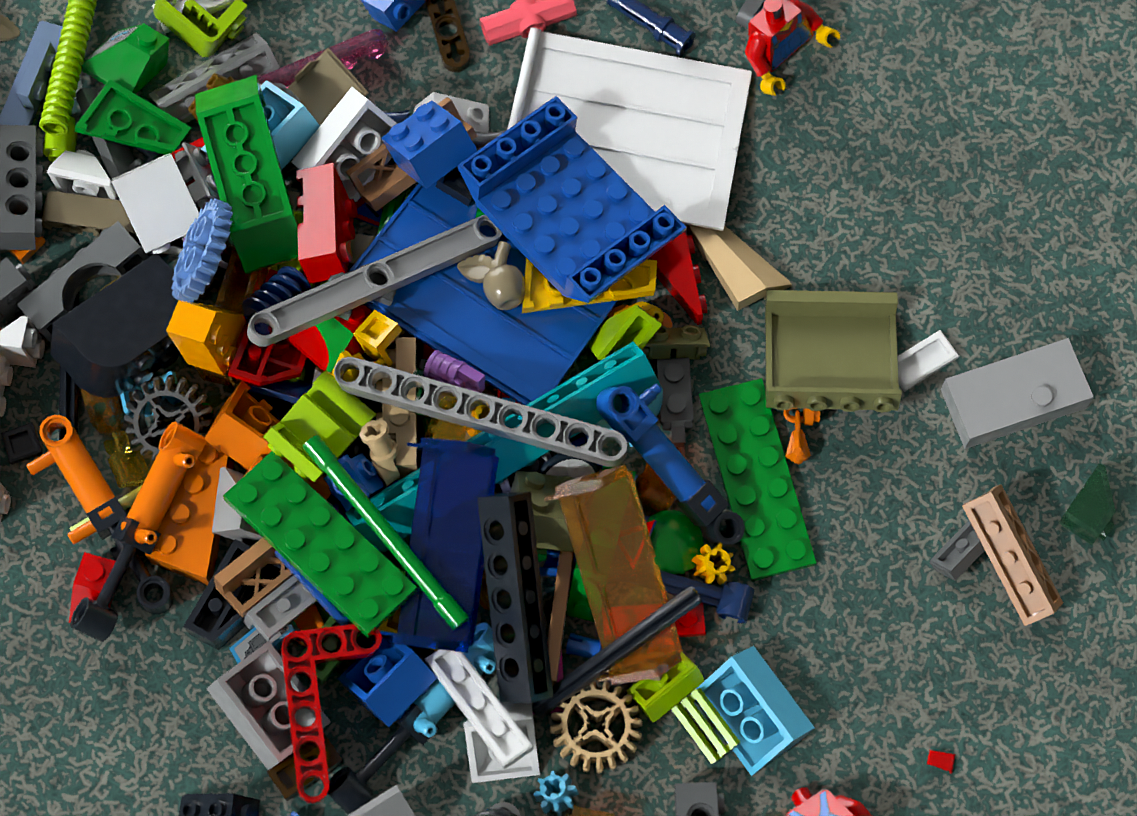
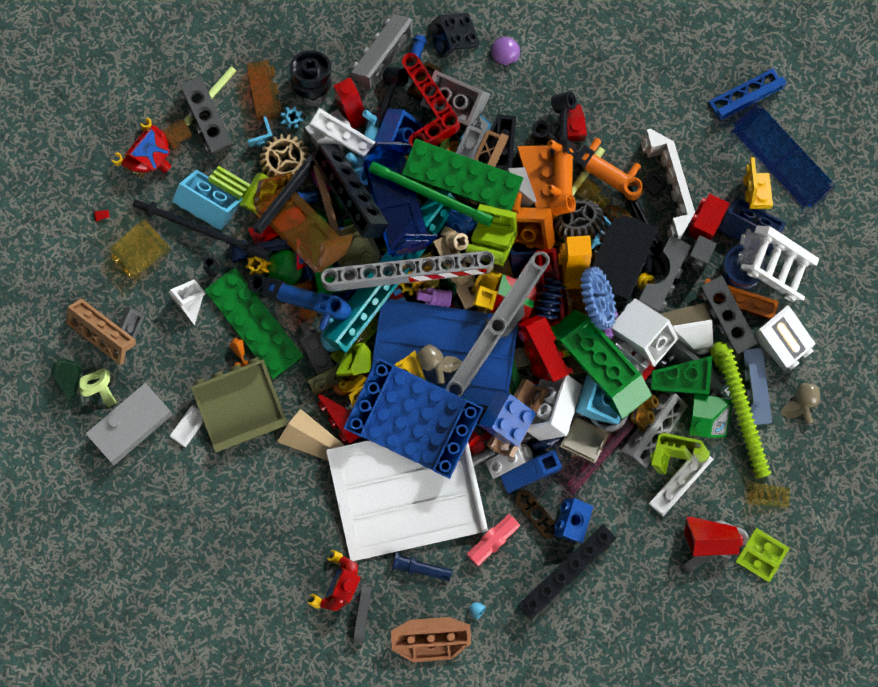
camera: 150 degrees right, 5 degrees up
(144, 765) = (505, 51): none -> medium lavender hair
(413, 81) = (531, 471): none -> blue slope
(446, 770) = (349, 102): none -> red slope
(620, 773) = (261, 140): none -> medium azure bracket
(716, 586) = (251, 249): none -> black bar
(792, 585) = (211, 266): none -> black pin
(848, 558) = (188, 298): none -> white slope
(899, 668) = (138, 249): none -> clear yellow panel
(1042, 465) = (100, 386): none -> yellowish green piece

